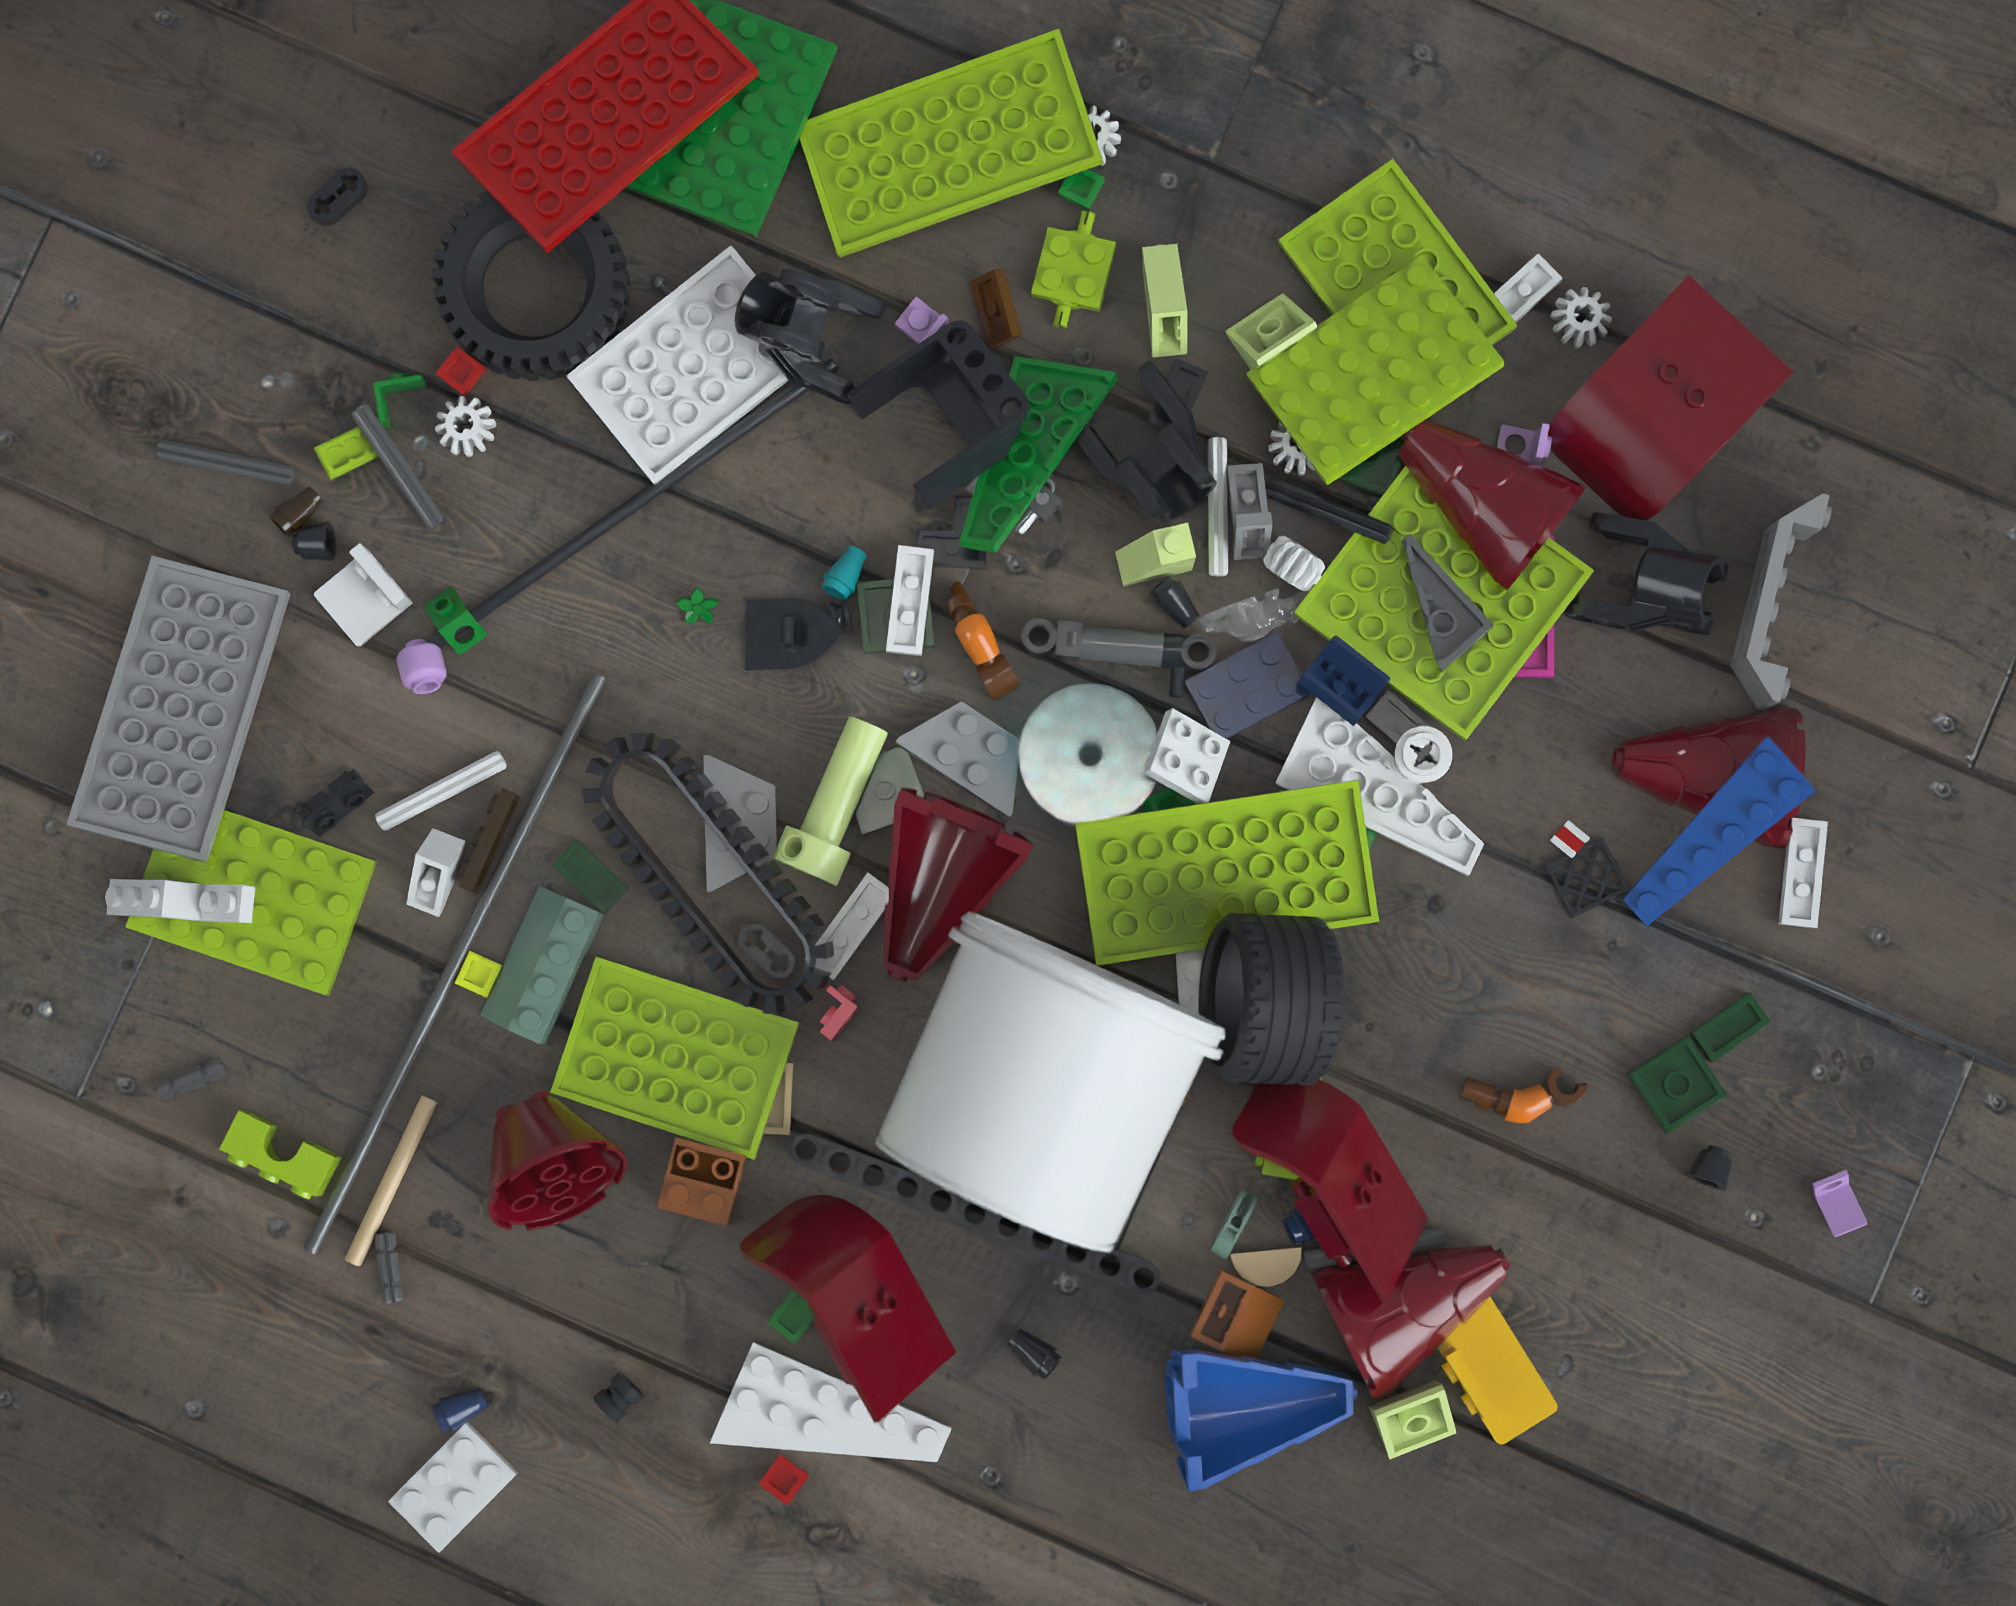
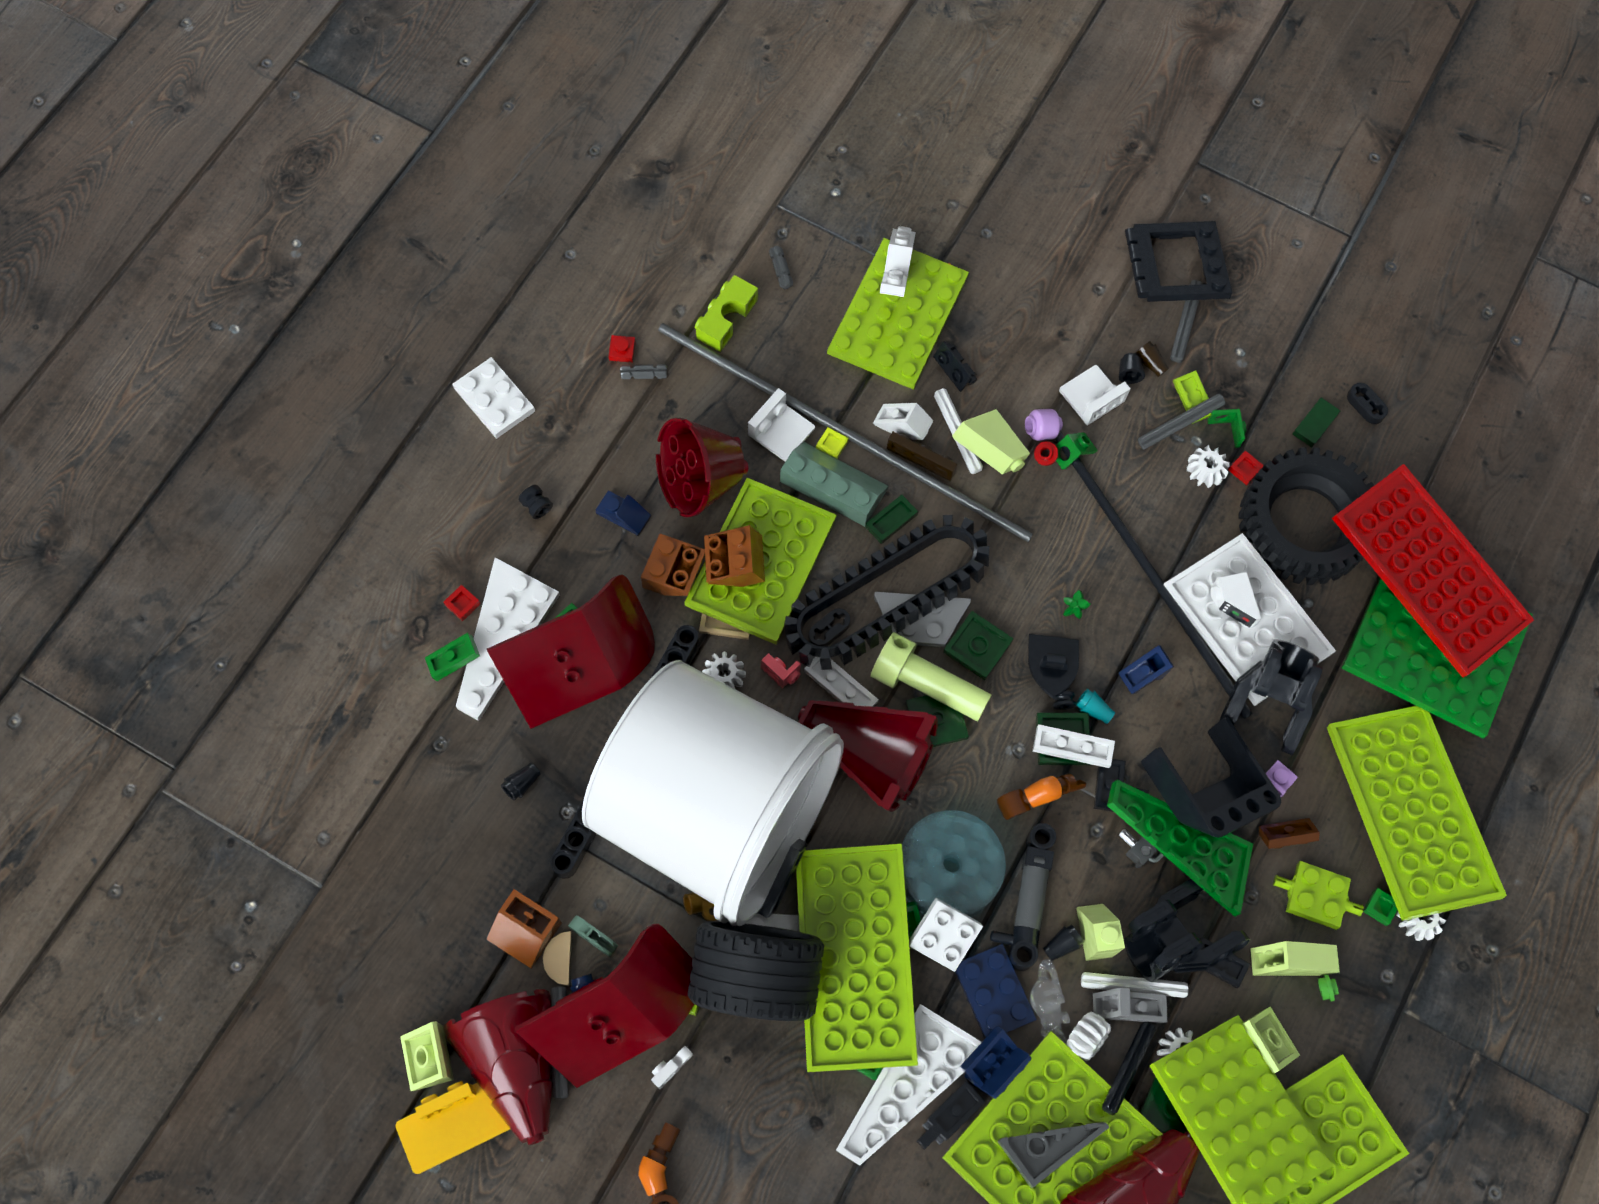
camera: 90 degrees right, 15 degrees down
(115, 428) = (1146, 271): none -> black hinge
(179, 709) = (1024, 277): light grey plate -> none
(352, 1305) = (622, 348): none -> red plate
(375, 270) = (1316, 422): none -> dark green tile
(391, 1180) = (701, 378): tan piece -> none
(458, 1409) = (543, 402): dark blue cone -> none
(459, 738) = (992, 441): none -> yellowish green slope
(463, 650) = (1051, 458): none -> red plate
(464, 1051) = (779, 426): none -> white bracket
(620, 1266) = (623, 512): none -> dark blue slope
(671, 384) = (1236, 598): none -> white slope
(684, 1095) = (734, 557): none -> dark orange slope
(772, 739) = (978, 645): none -> dark green plate
(788, 506) = (1145, 670): none -> dark blue slope
(847, 1080) = (734, 670): none -> white gear
(868, 1478) = (452, 657): none -> green plate
(969, 753) = (959, 780): light grey wing -> none
(1136, 977) = (783, 878): none -> black tile
(1195, 257) = (1328, 988): none -> bright green plate
(1245, 1409) = (453, 928): blue cone -> none
(1397, 1105) = (666, 1071): none -> white plate
(1440, 752) = (947, 1121): white gear -> none

